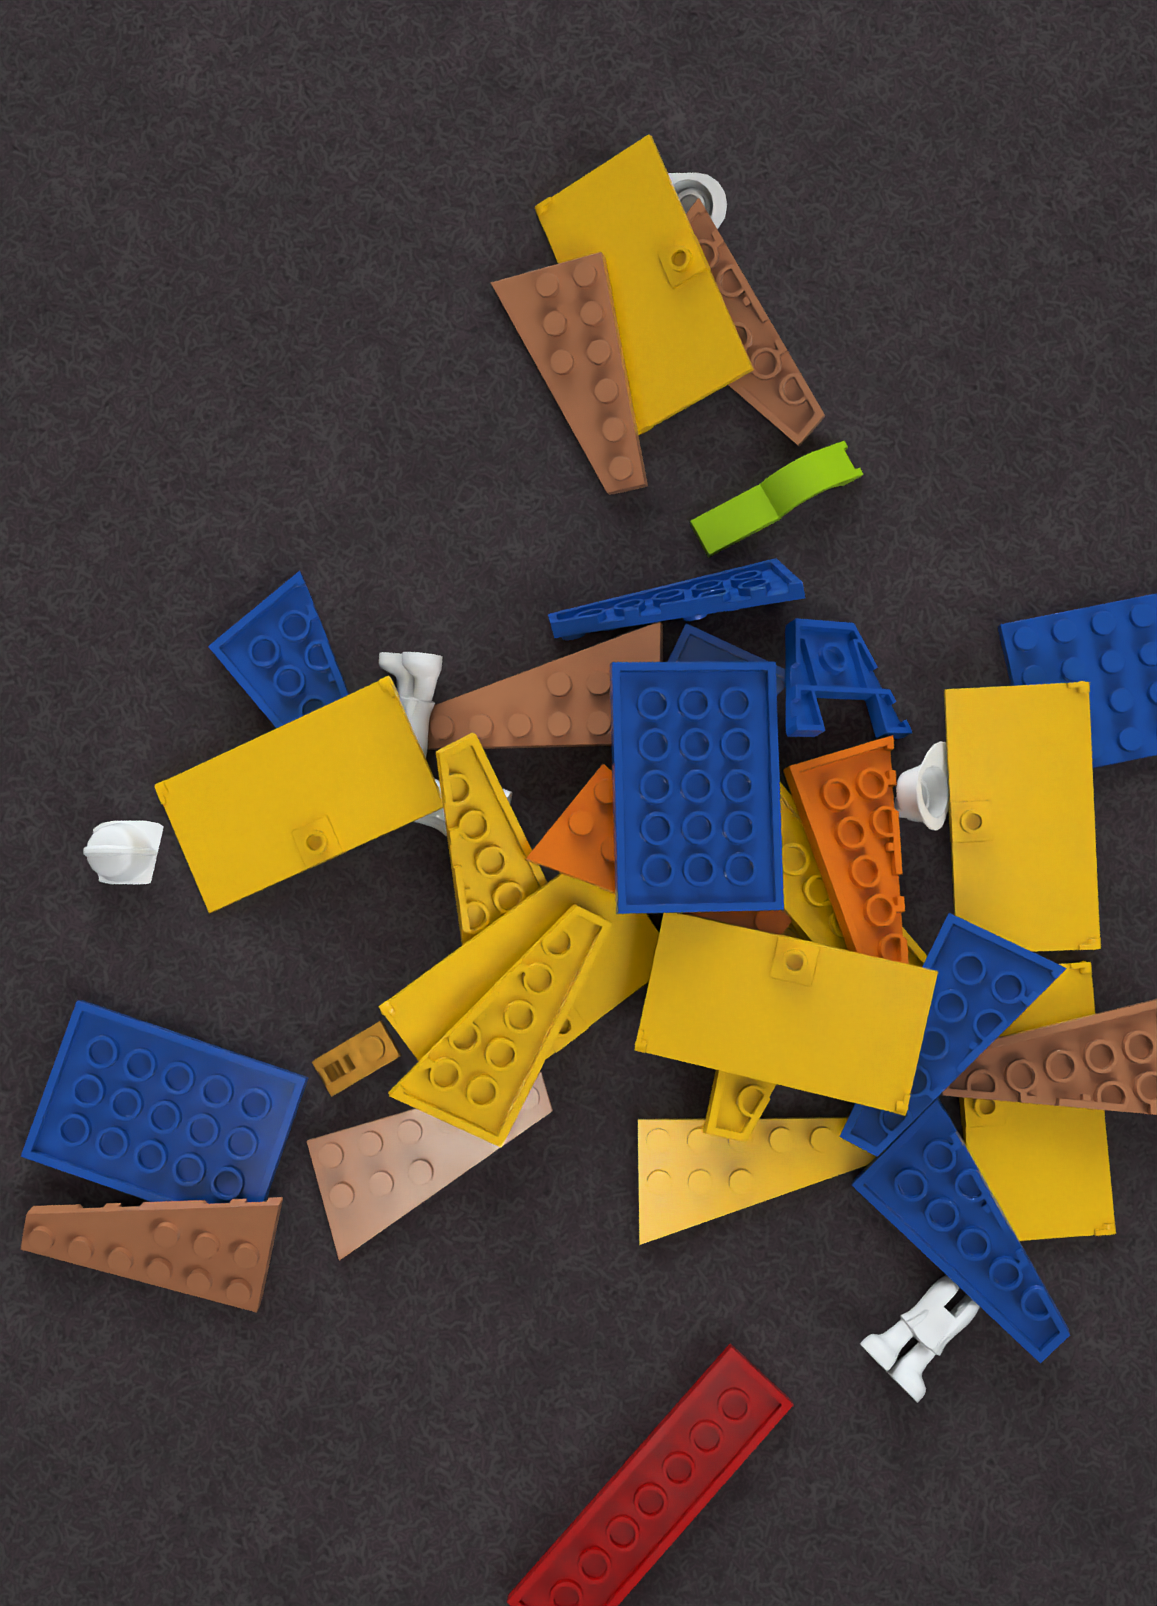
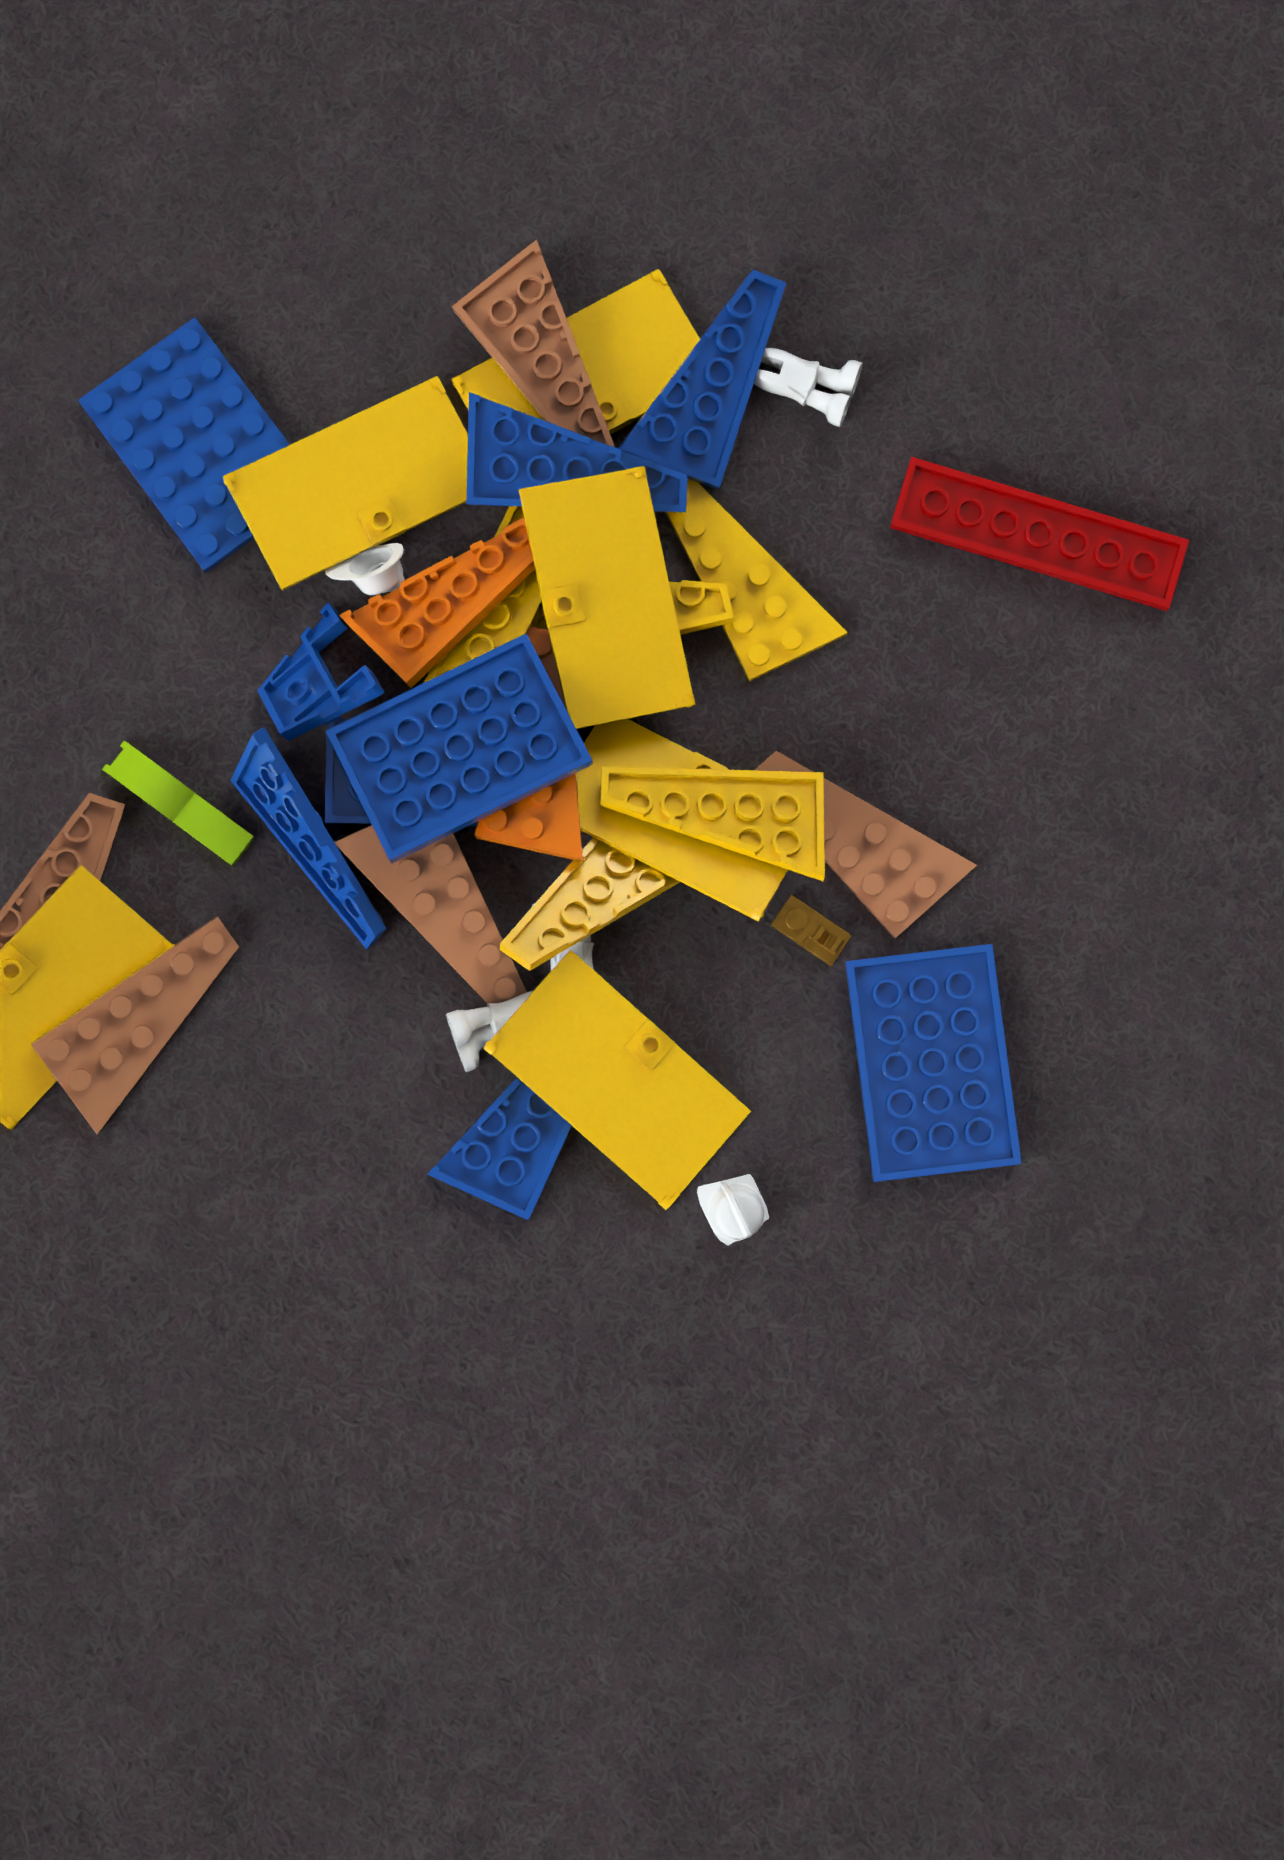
camera: 125 degrees left, 0 degrees up
(176, 1245) = (1030, 1003): nougat wing -> none

